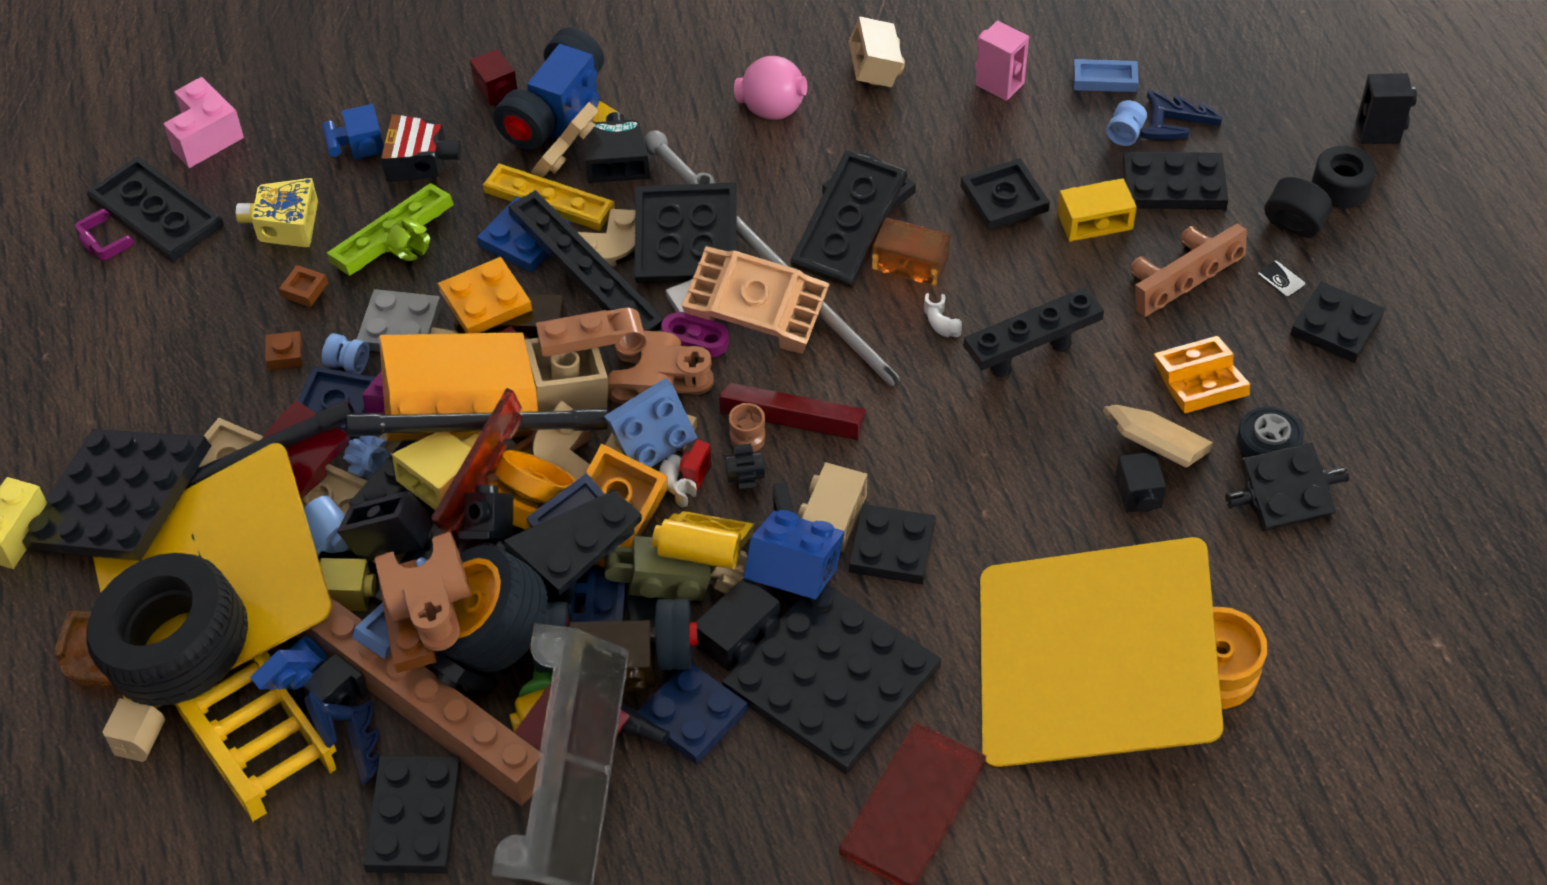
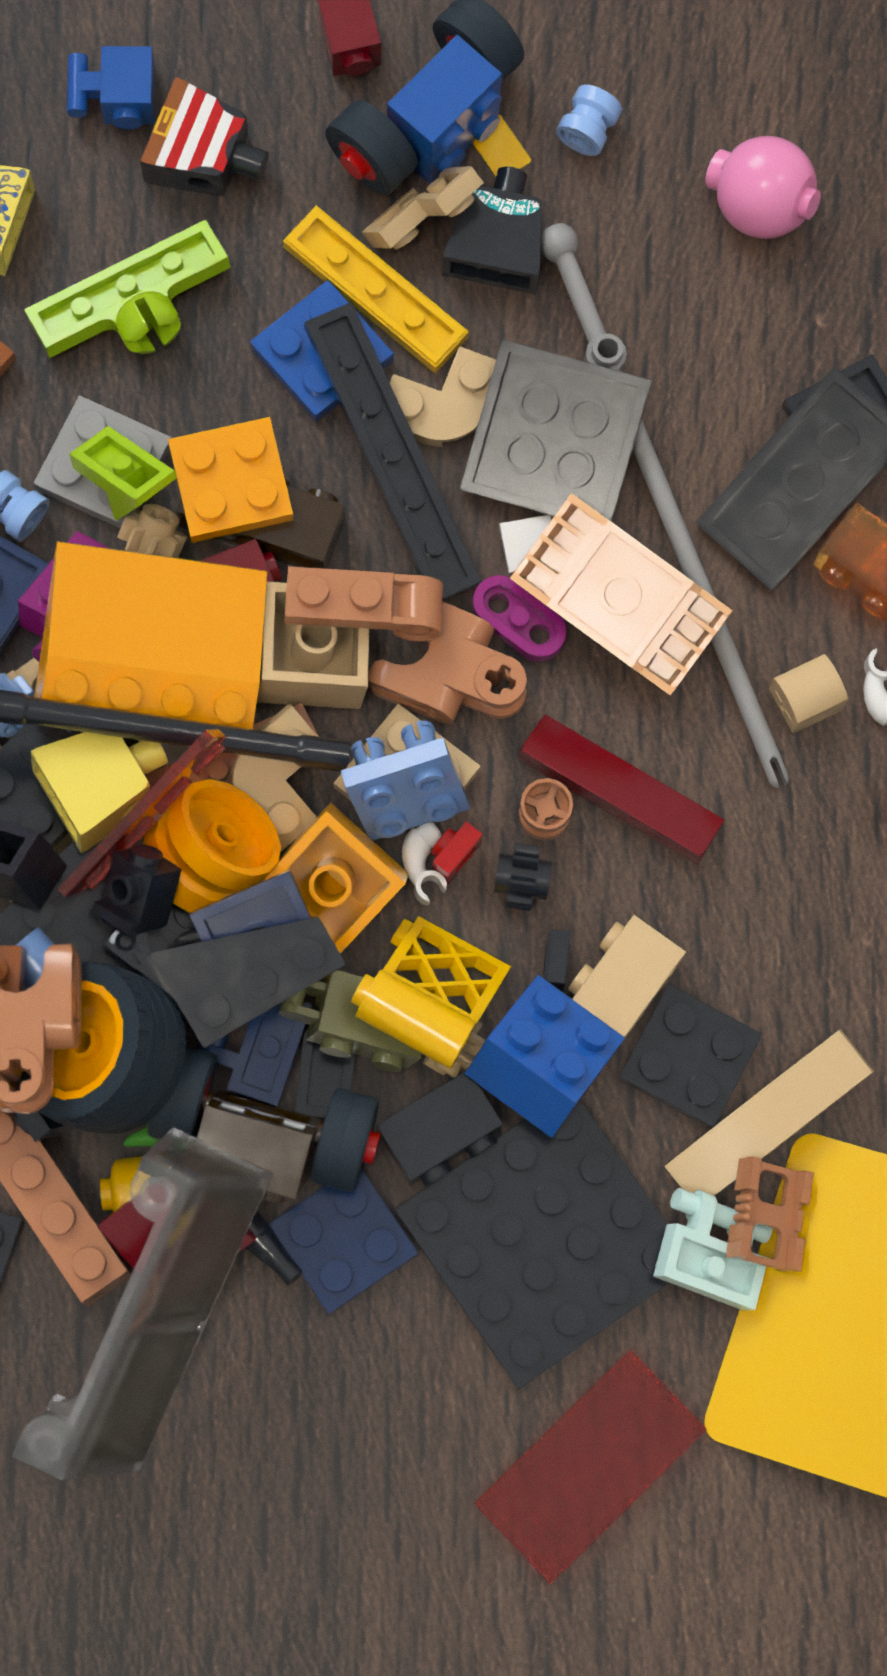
camera: 10 degrees right, 25 degrees up
(417, 309) = (121, 470): none -> lime slope
(654, 84) = (591, 116): none -> light blue wheel
(895, 326) = (809, 693): none -> tan piece
(950, 643) = (700, 1261): none -> light aqua plate
(957, 560) = (771, 1115): none -> tan slope
(990, 612) = (785, 1218): none -> nougat piece

